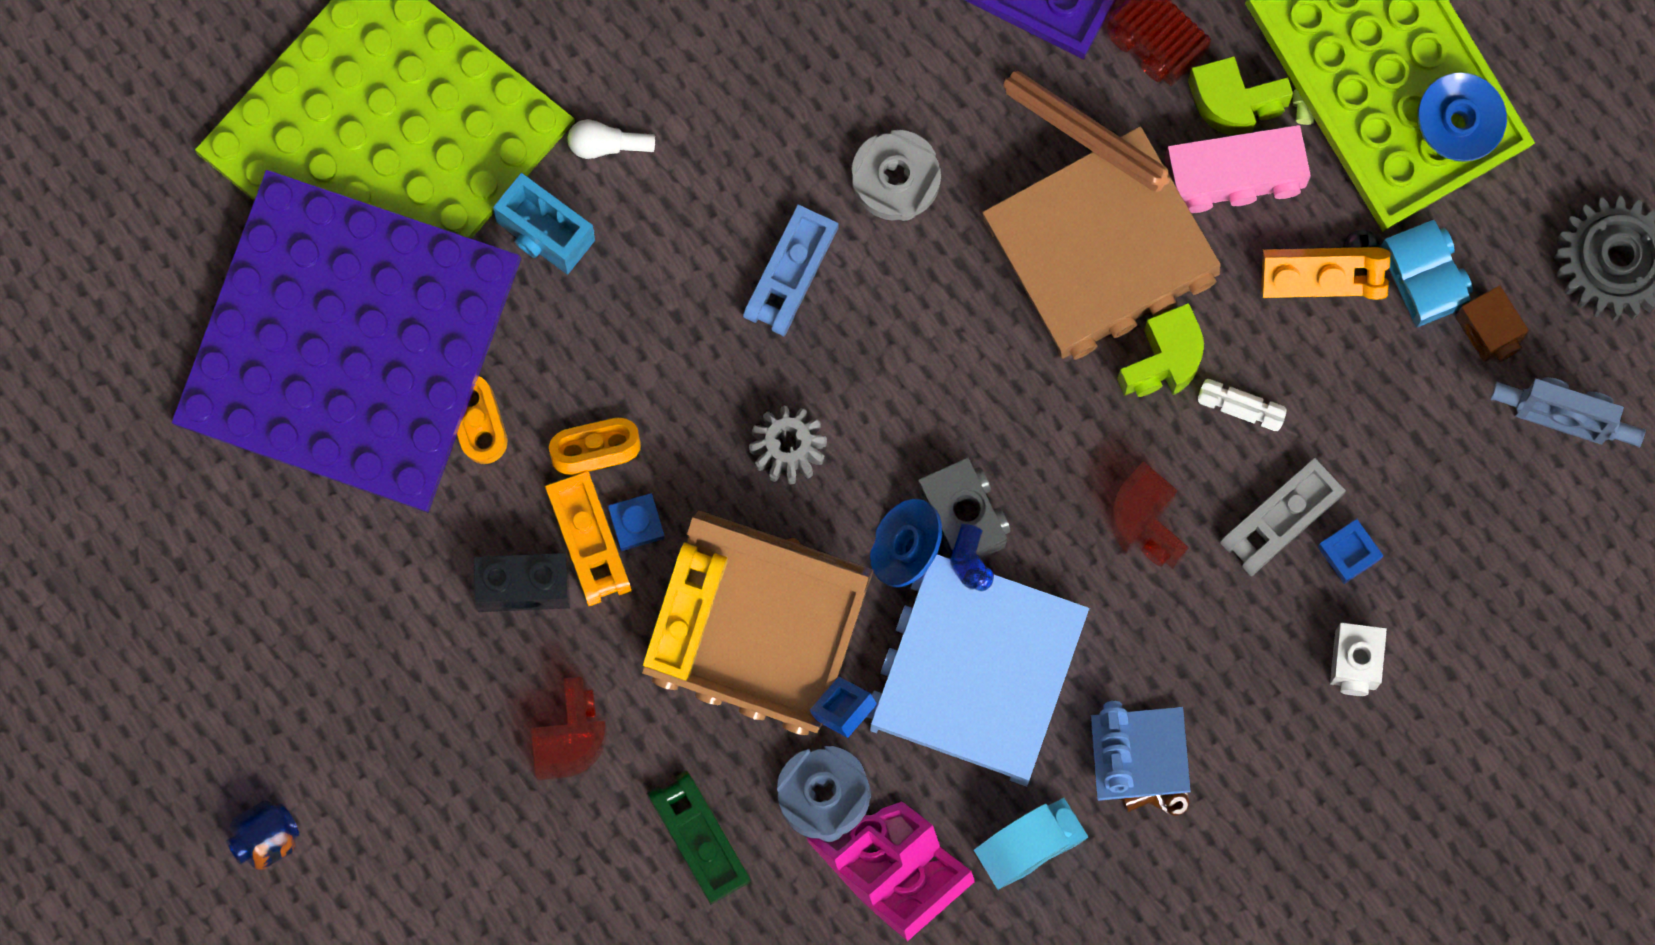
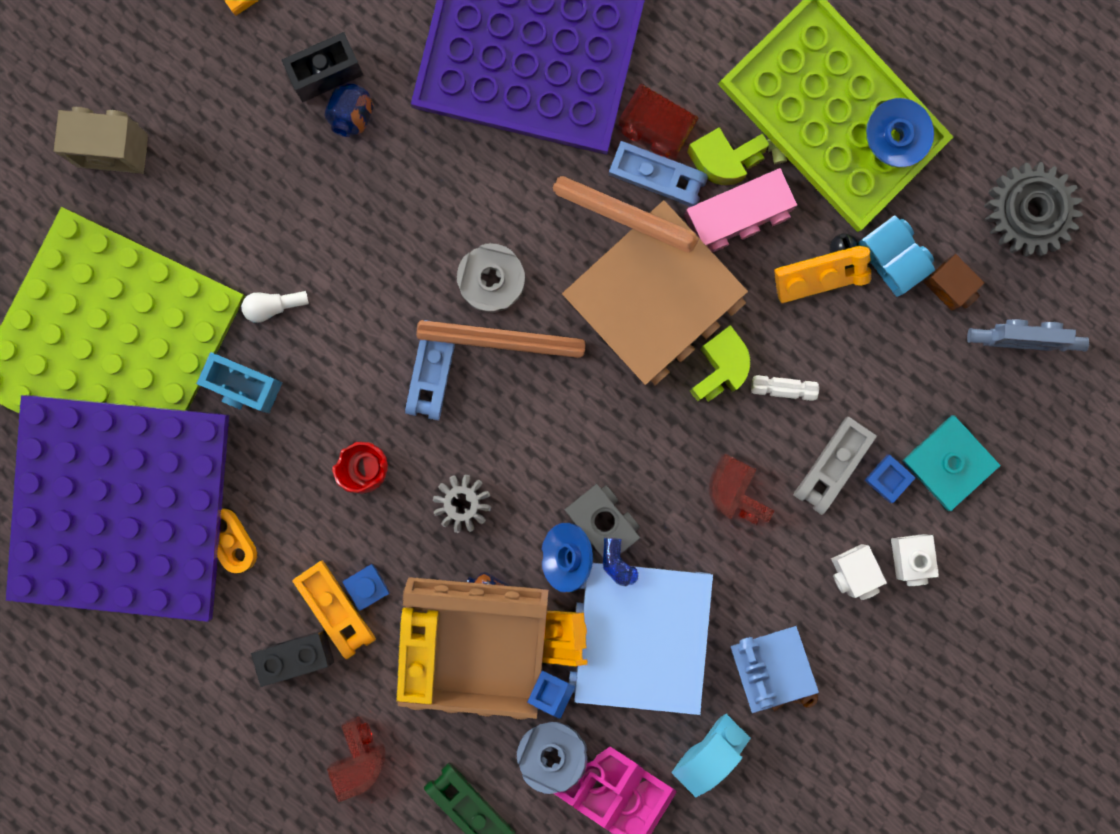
camera: 15 degrees left, 10 degrees up
(594, 446) = (322, 539): light orange plate -> none
(687, 368) = (347, 471): none -> red hair
(877, 639) = (564, 638): none -> light orange plate
(890, 251) = (500, 339): none -> nougat axle
(1141, 97) = (657, 174): none -> medium blue plate
(1279, 658) = (858, 572): none -> white brick
(1436, 553) = (951, 463): none -> teal plate

